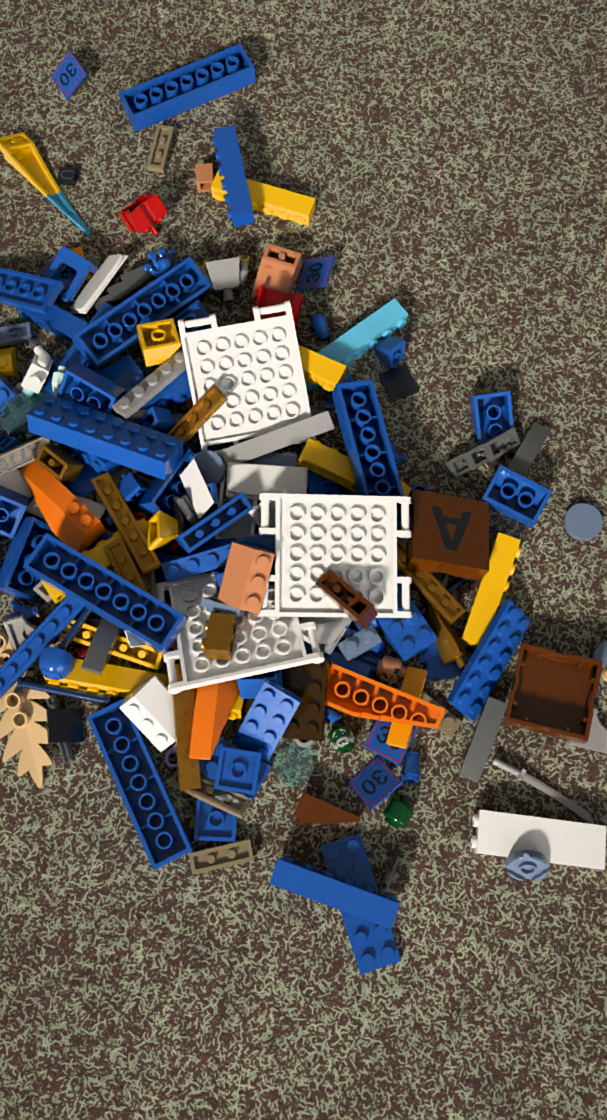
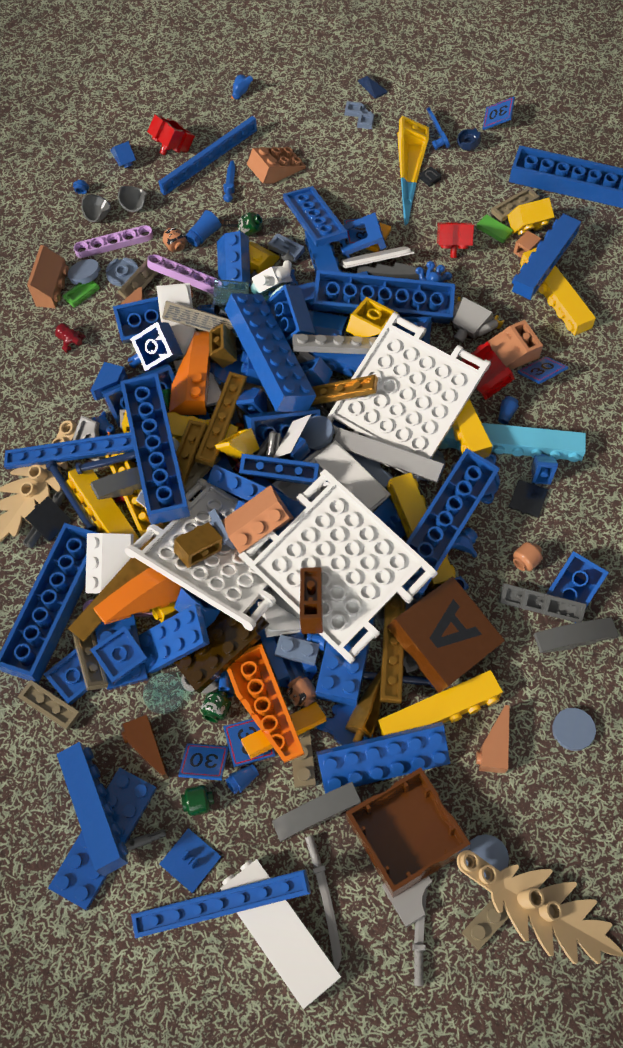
camera: 45 degrees right, 10 degrees down
(47, 134) = (443, 140): none -> blue brick
(55, 663) = (82, 470): blue helmet -> none
(67, 117) = (469, 139): none -> dark blue hair
(164, 182) = (494, 228): none -> bright green tile
(187, 150) = (531, 216): none -> yellow brick
(432, 855) = (190, 860): none -> blue piece
(442, 427) = (527, 556): none -> nougat head
(487, 862) = (221, 903): none -> blue tile
(516, 496) = (533, 656): blue slope -> none
(527, 865) = (247, 940): sand blue tile -> none
(548, 580) = (495, 749): none -> nougat slope

